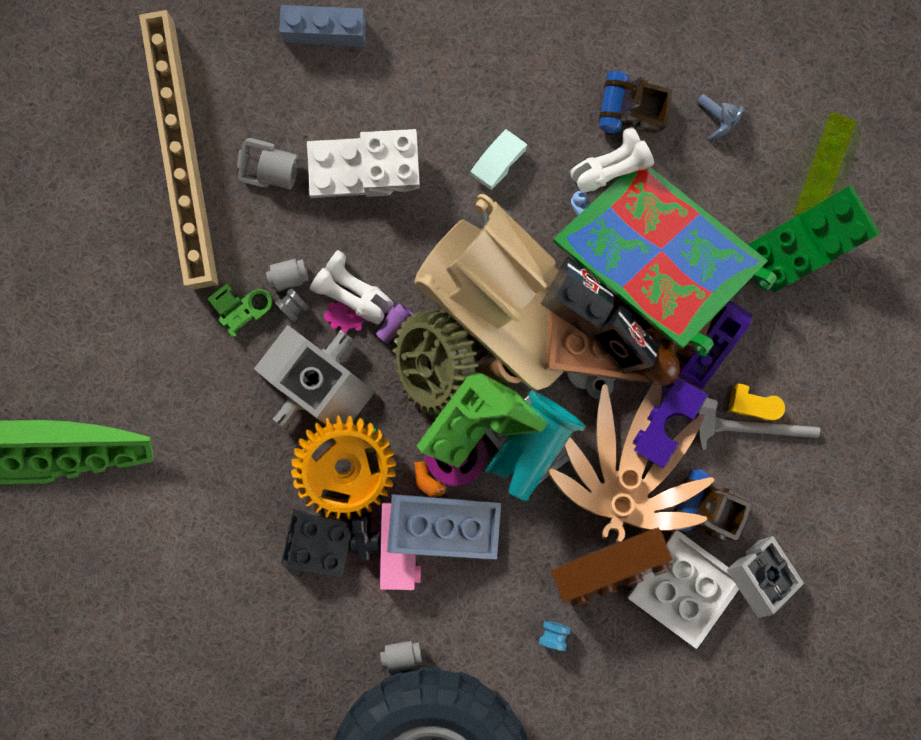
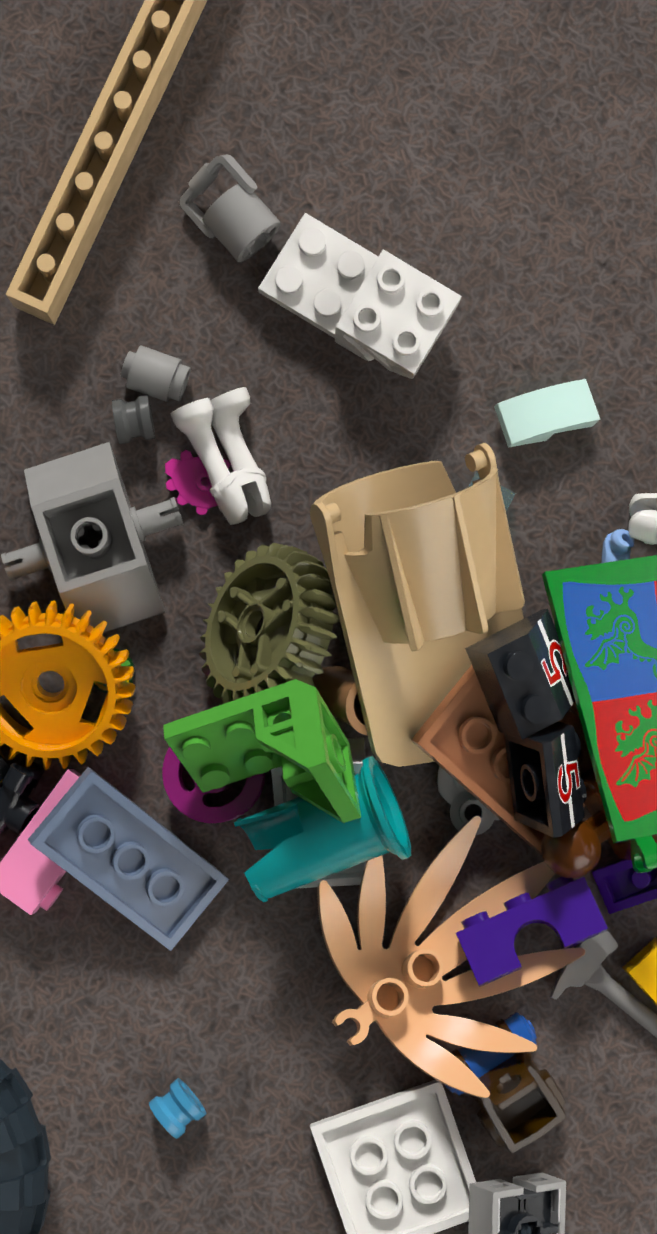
camera: 30 degrees right, 0 degrees up
(235, 311) = (52, 373): bright green piece -> none
(322, 25) = (434, 70): sand blue brick -> none
(393, 322) = (251, 535): medium lavender cone -> none
(426, 483) = (147, 781): orange arm -> none
(611, 567) = (317, 1071): reddish brown brick -> none

